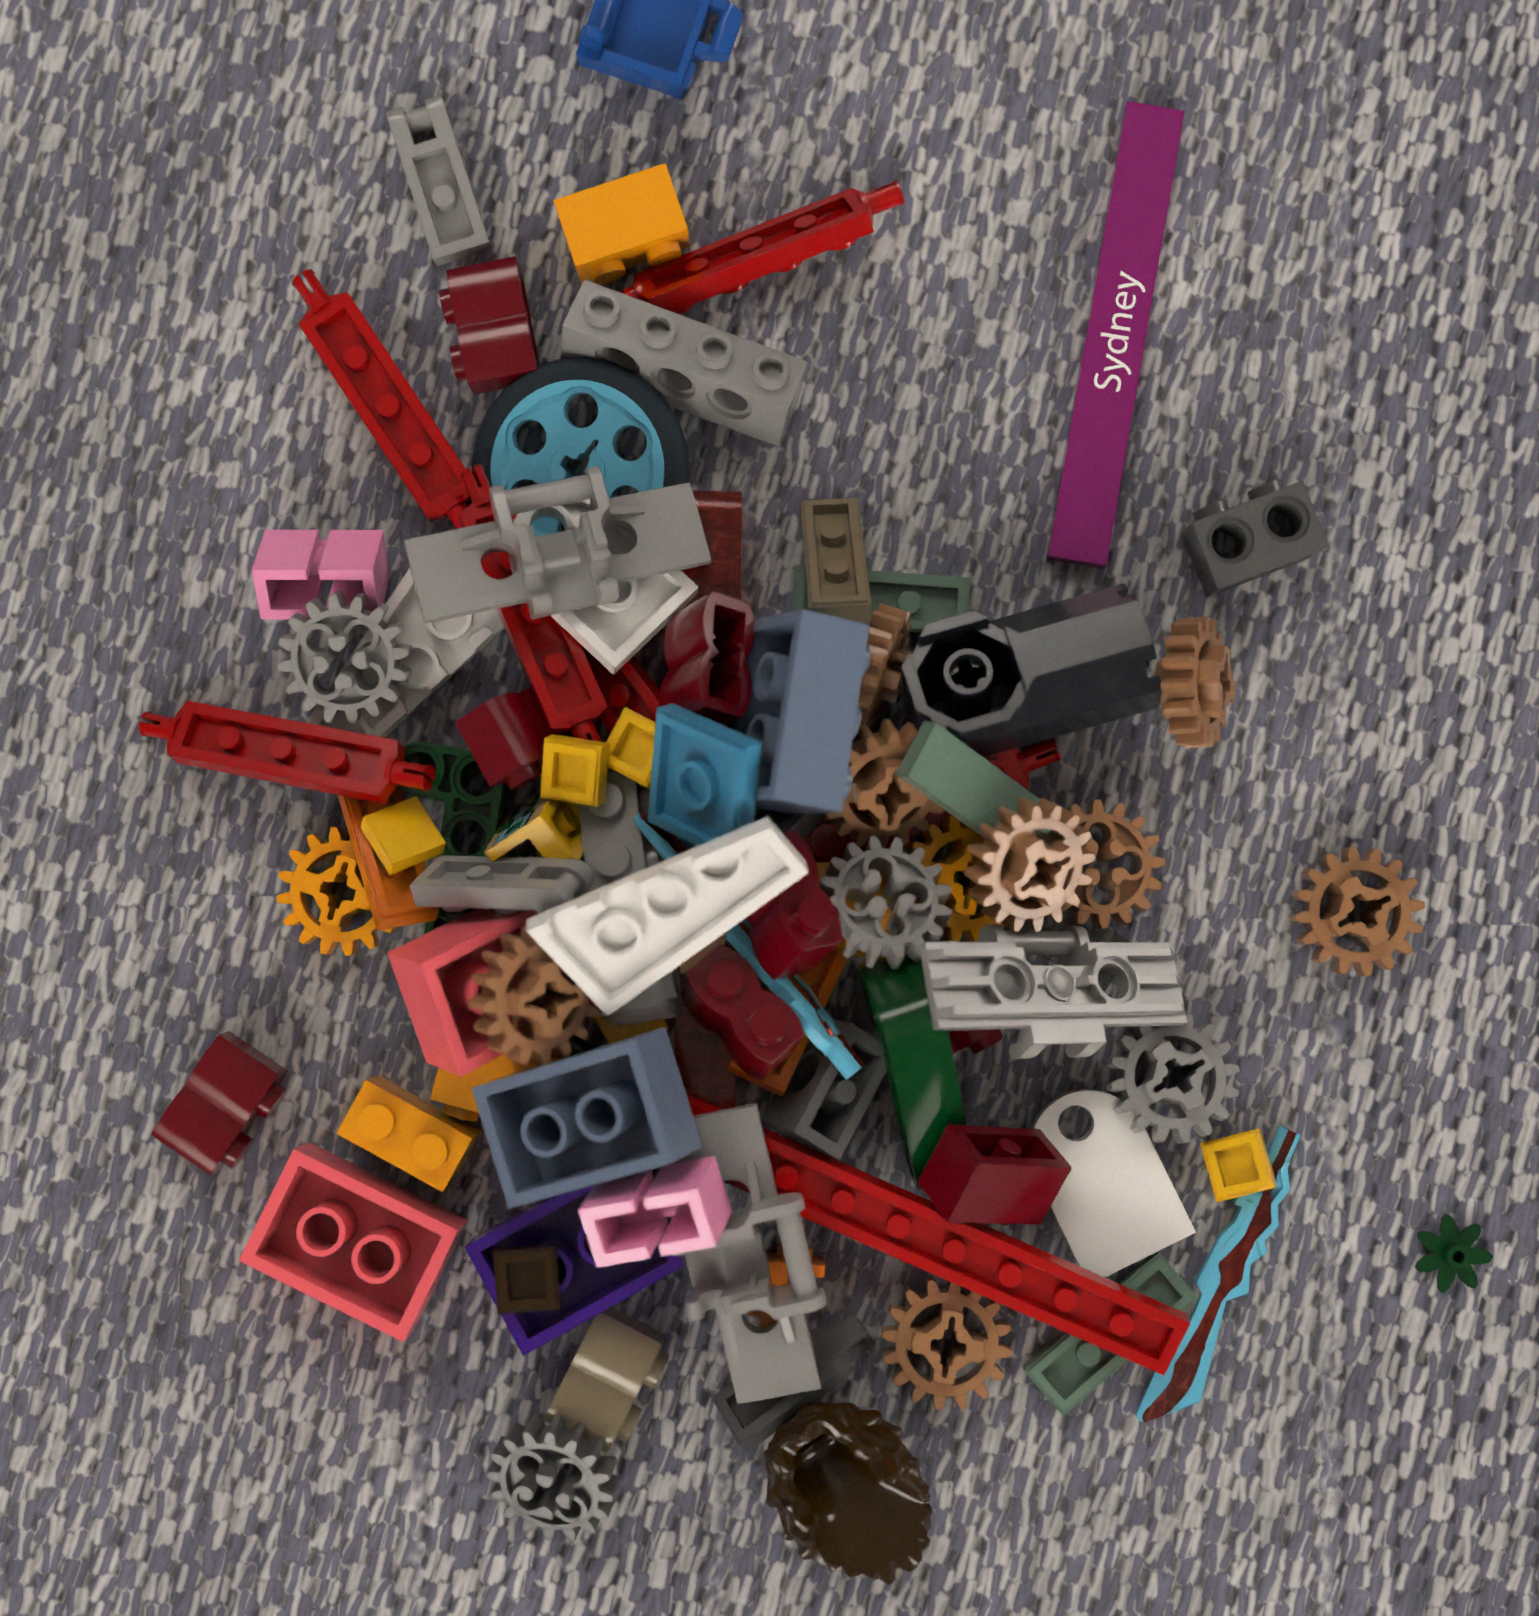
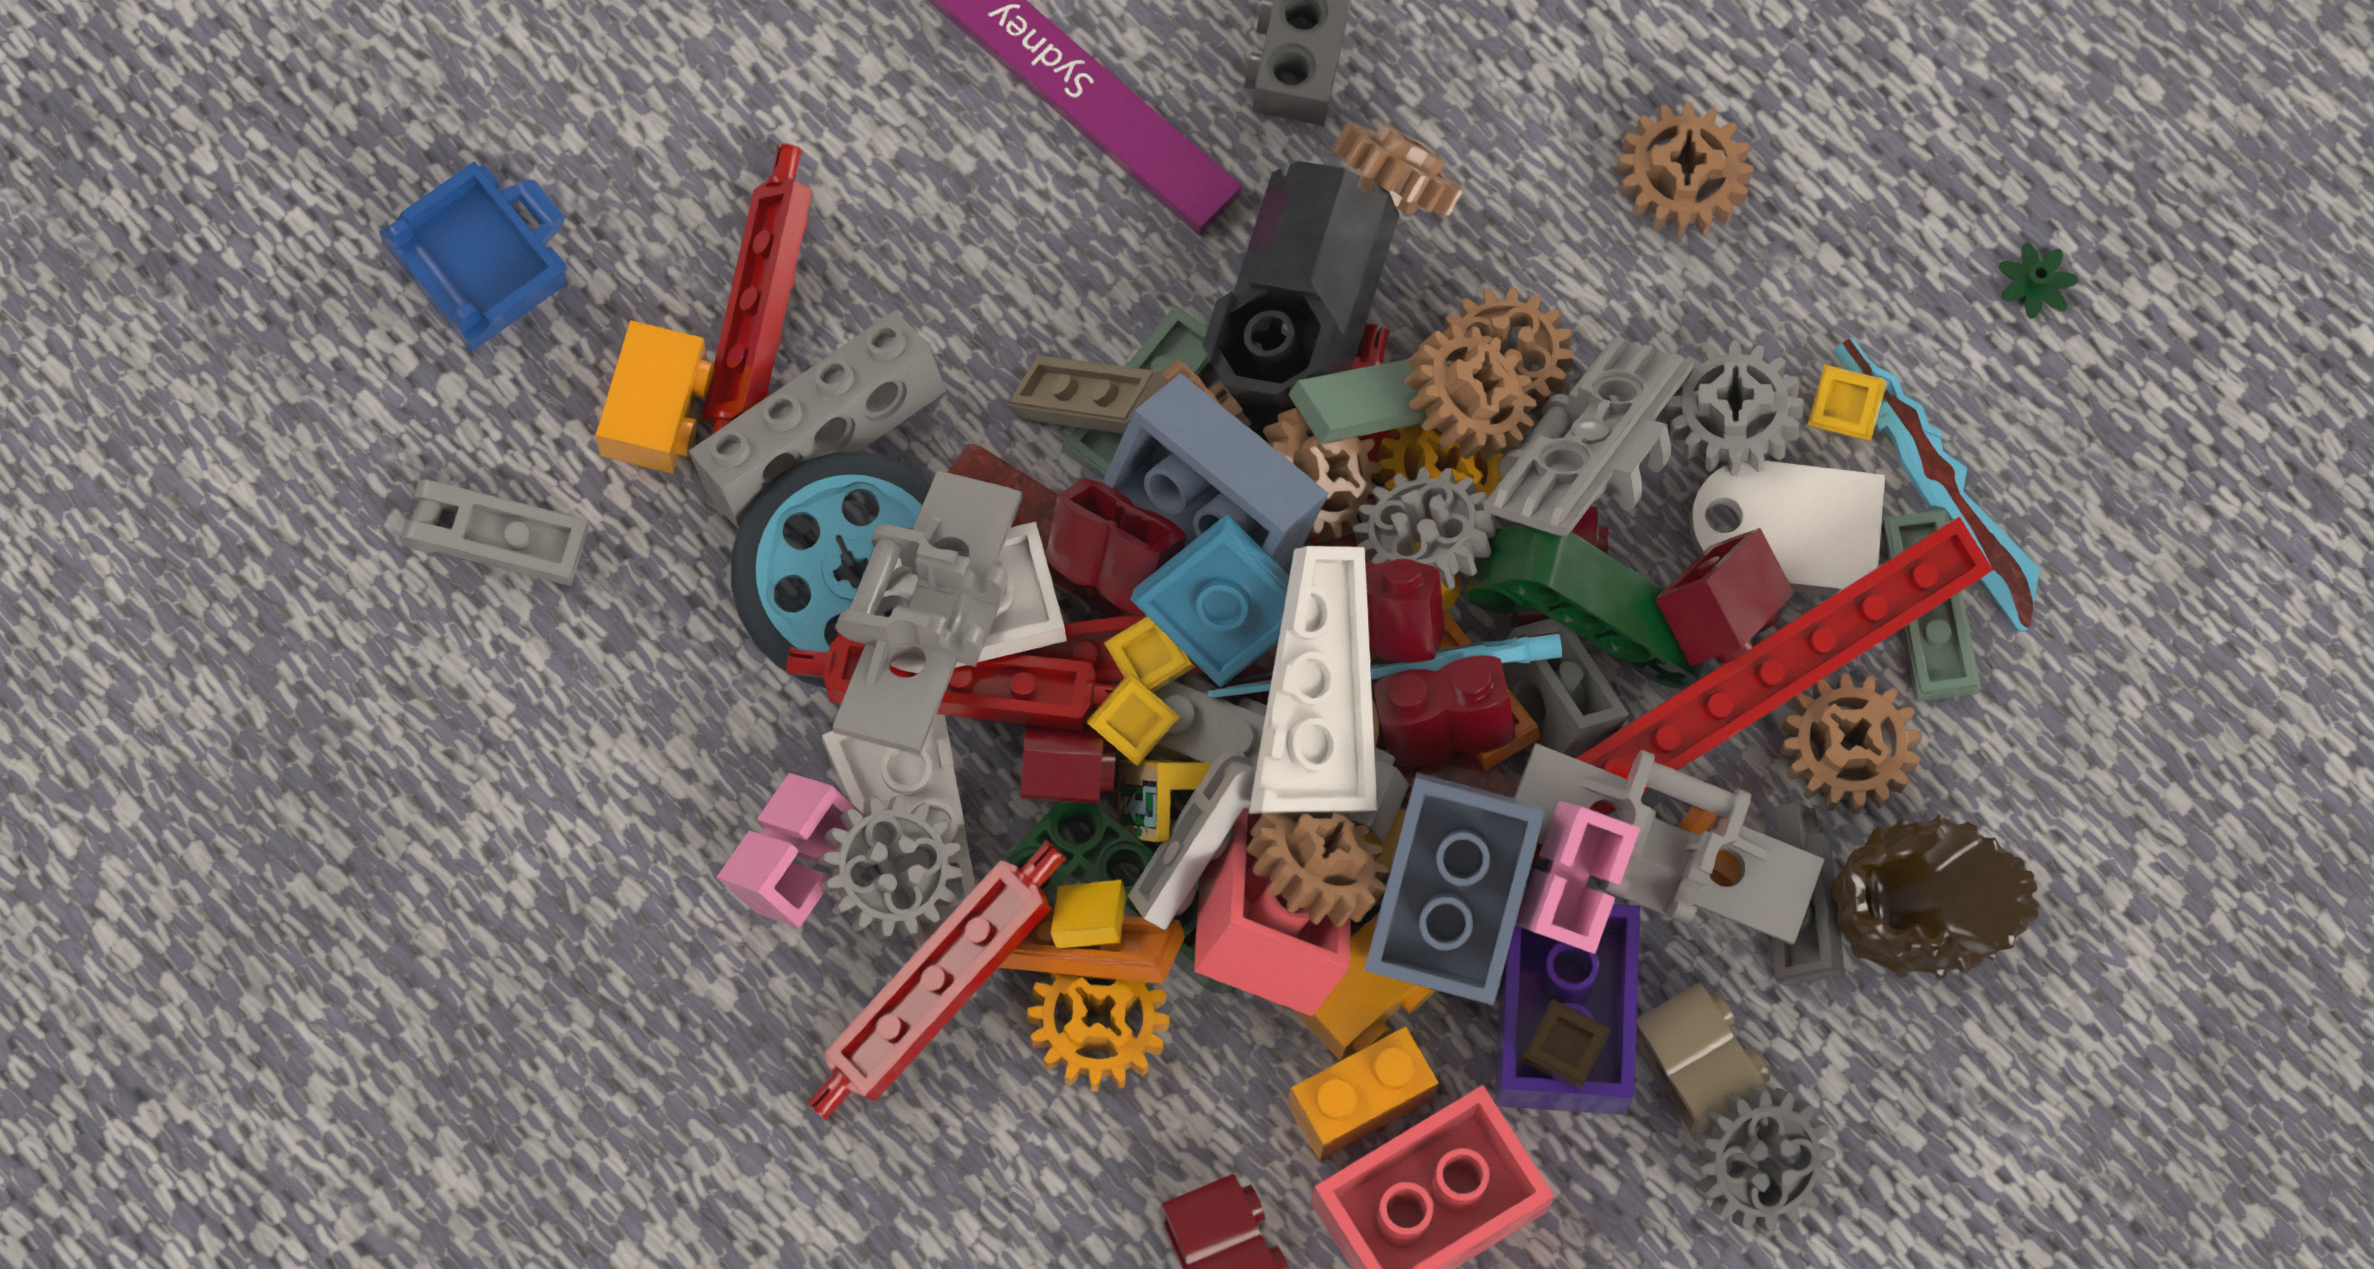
camera: 65 degrees left, 15 degrees down
(384, 400) = (670, 704): red plate -> none
(491, 322) = (664, 566): dark red brick -> none

